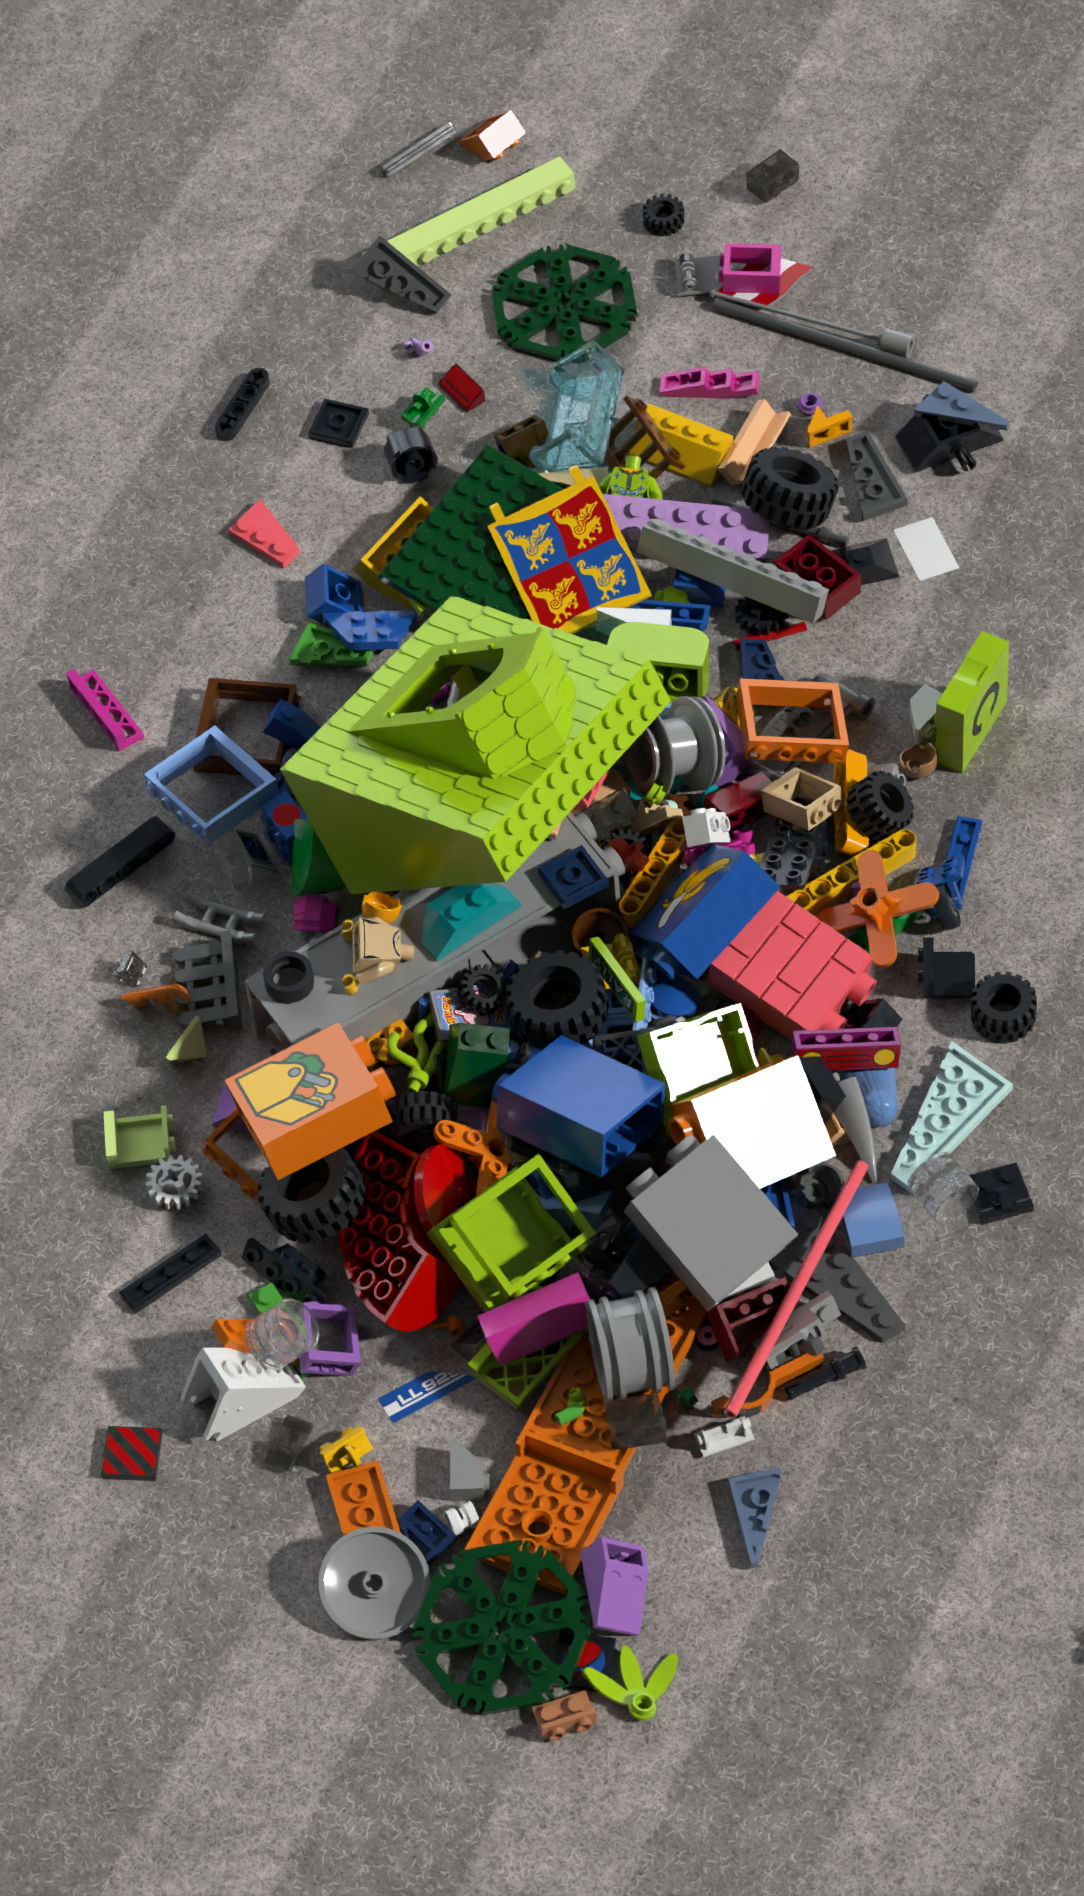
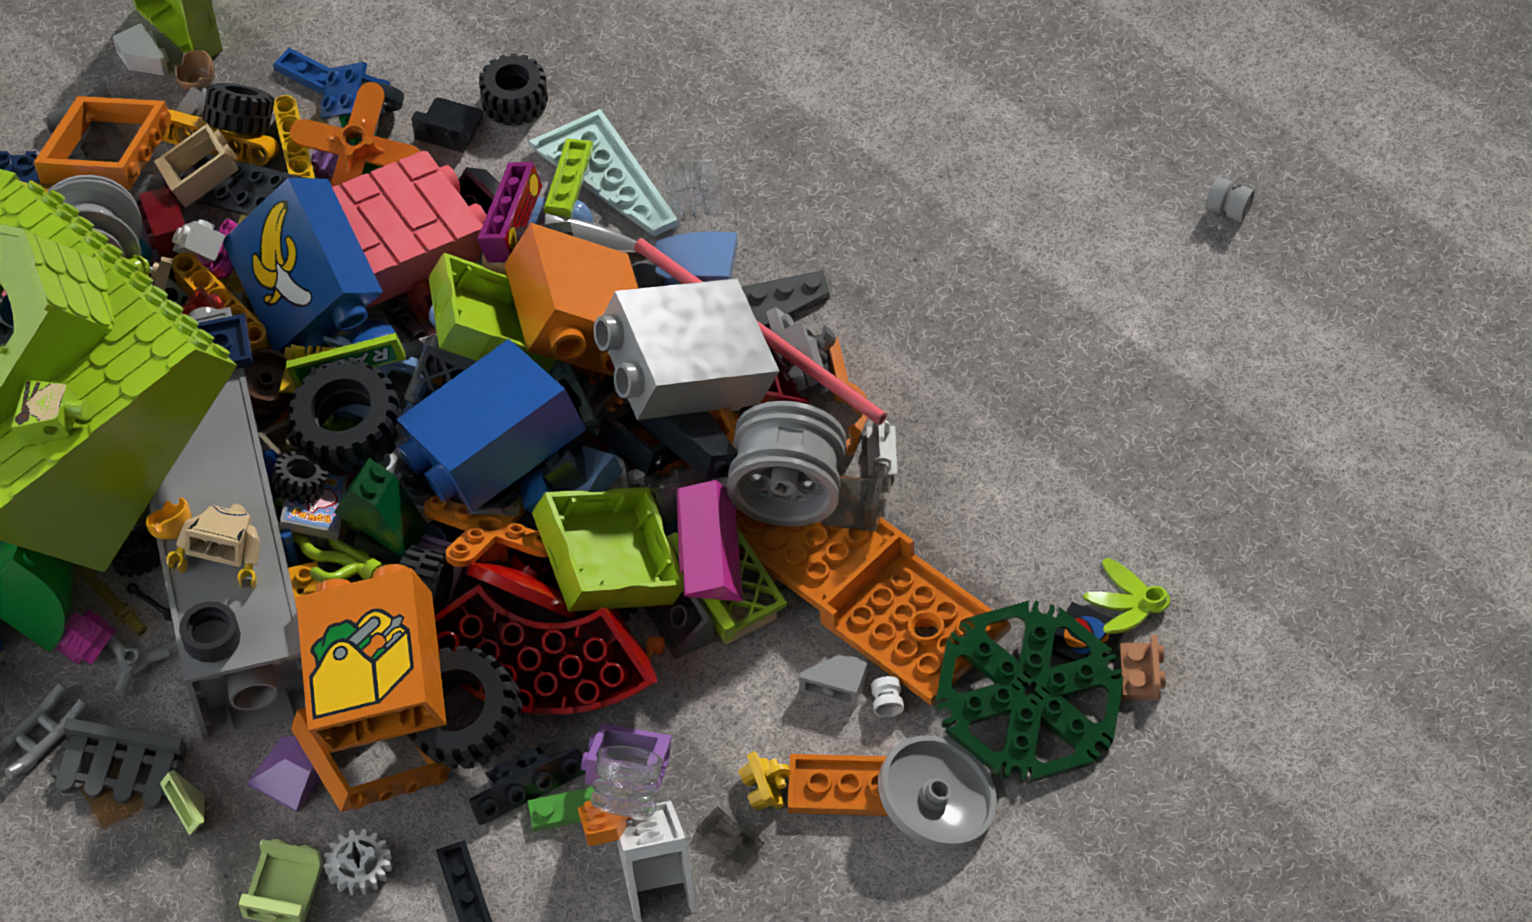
camera: 75 degrees left, 0 degrees up
(130, 969) = (55, 835): clear smoke tile -> none
(160, 994) = (107, 811): orange piece -> none
(393, 766) = (47, 412): none -> lime torso
(421, 1392) = (717, 700): blue sticker -> none
(426, 1531) = (886, 732): dark blue wing -> none
(463, 915) = (217, 458): teal wedge -> none
(539, 1272) = (575, 527): lime window -> none
(575, 1407) = (815, 549): arm -> none
(615, 1584) = (1017, 575): medium lavender slope -> none
(754, 1501) = (973, 447): sand blue wing -> none
(836, 1368) = (848, 338): black pin -> none
(911, 1083) = (568, 177): none -> lime tile
(1001, 1194) = (719, 147): black hinge -> none

